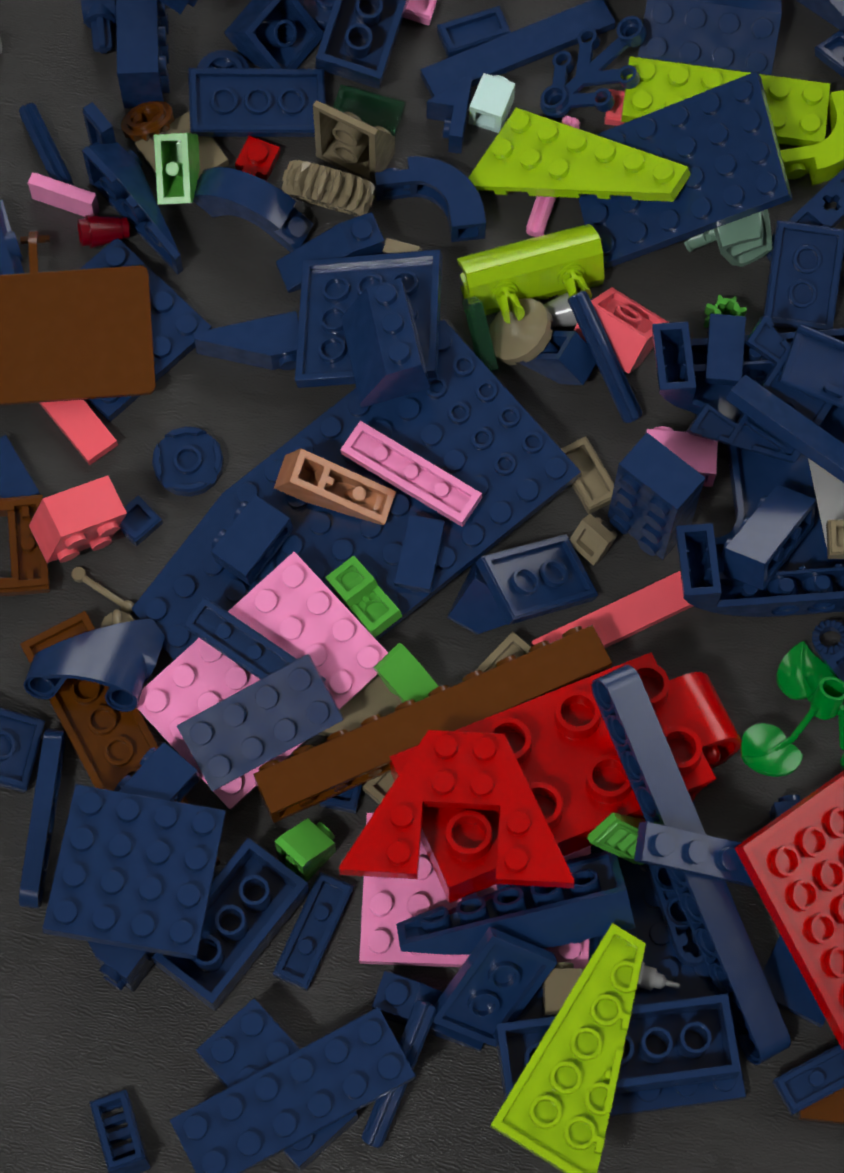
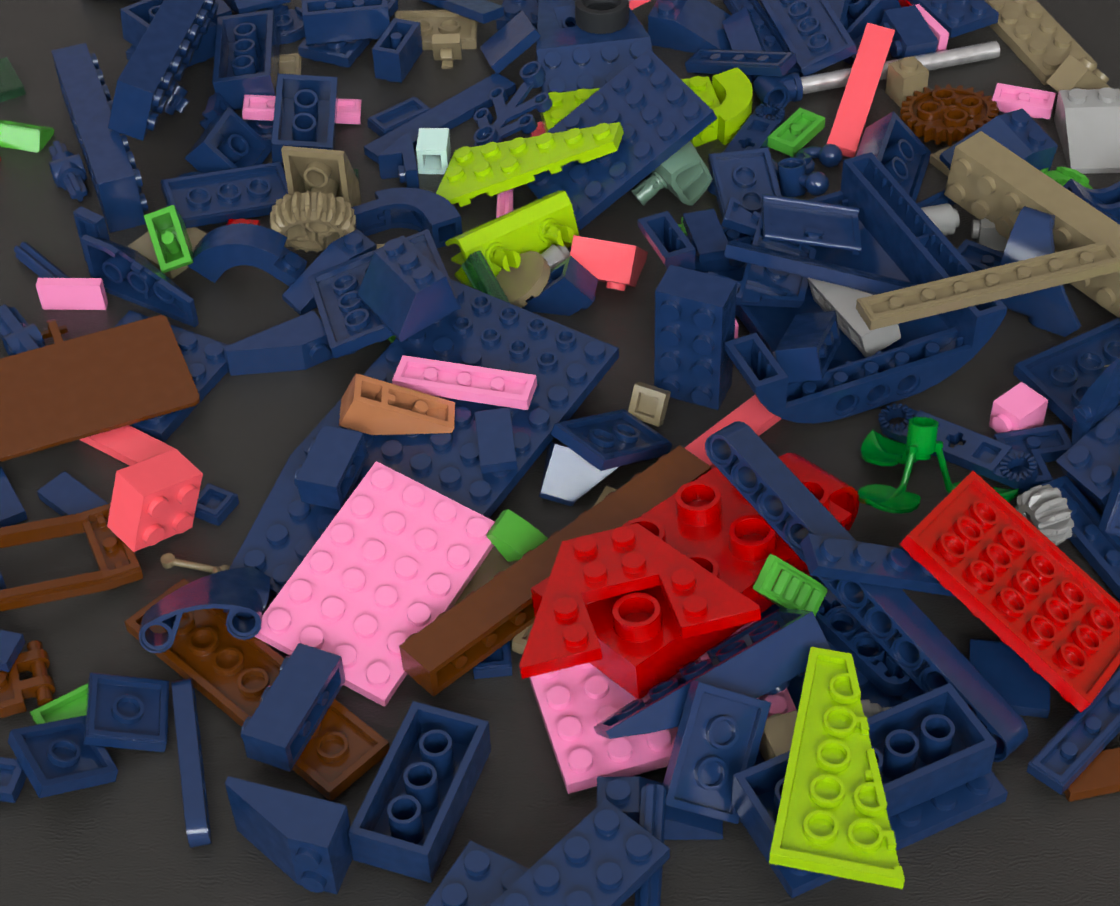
camera: 15 degrees left, 25 degrees down
(101, 230) = (111, 309): dark red cone -> none
(134, 872) = (305, 752): dark blue plate -> none
(158, 115) = (130, 229): reddish brown gear -> none
(188, 461) = (248, 450): dark blue tile -> none
(236, 639) = (365, 549): dark blue tile -> none
(260, 722) = (391, 603): dark blue plate -> none
(305, 848) = (475, 699): bright green slope -> none
(313, 931) = (508, 783): dark blue tile -> none
(363, 596) = (451, 481): bright green slope -> none
(595, 484) = (630, 369): dark tan tile -> none
(605, 357) = (604, 274): dark blue axle -> none

